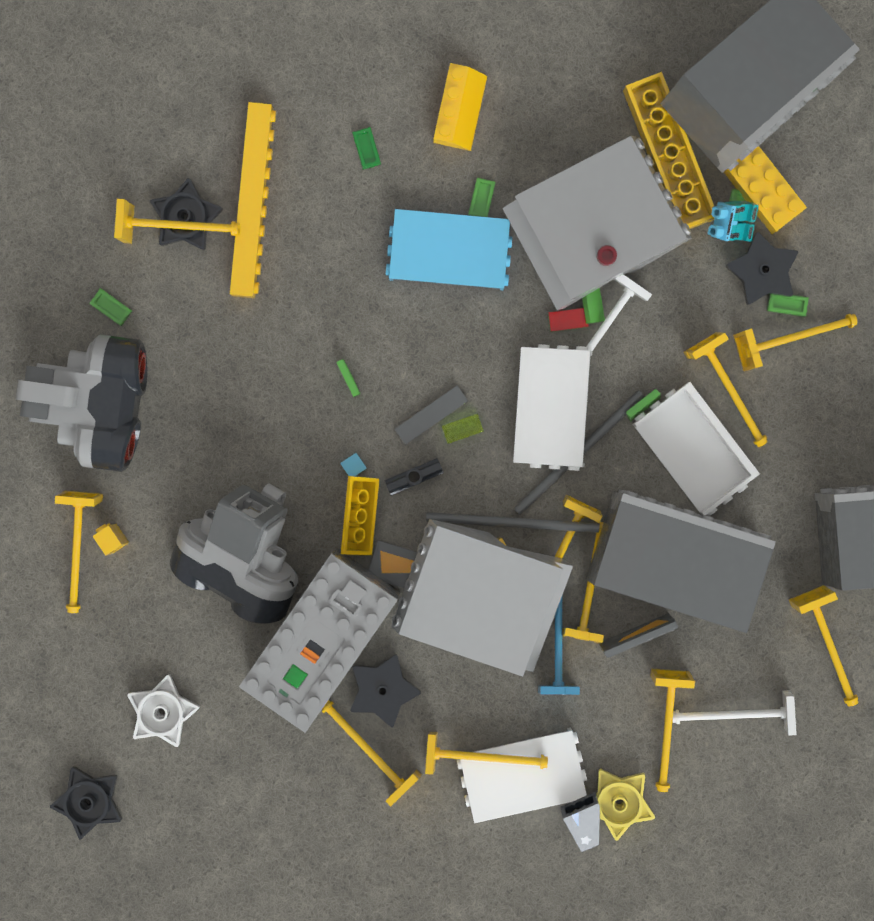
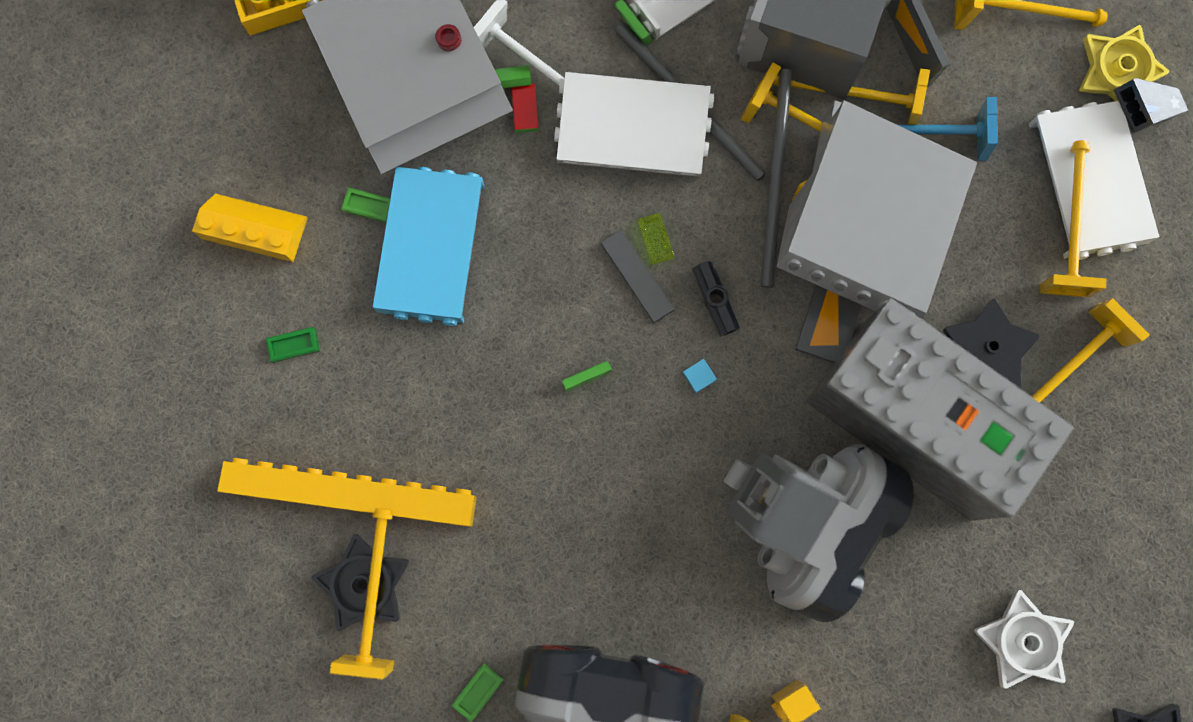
camera: 85 degrees left, 10 degrees down
(359, 515) = (766, 366): yellow slope -> none

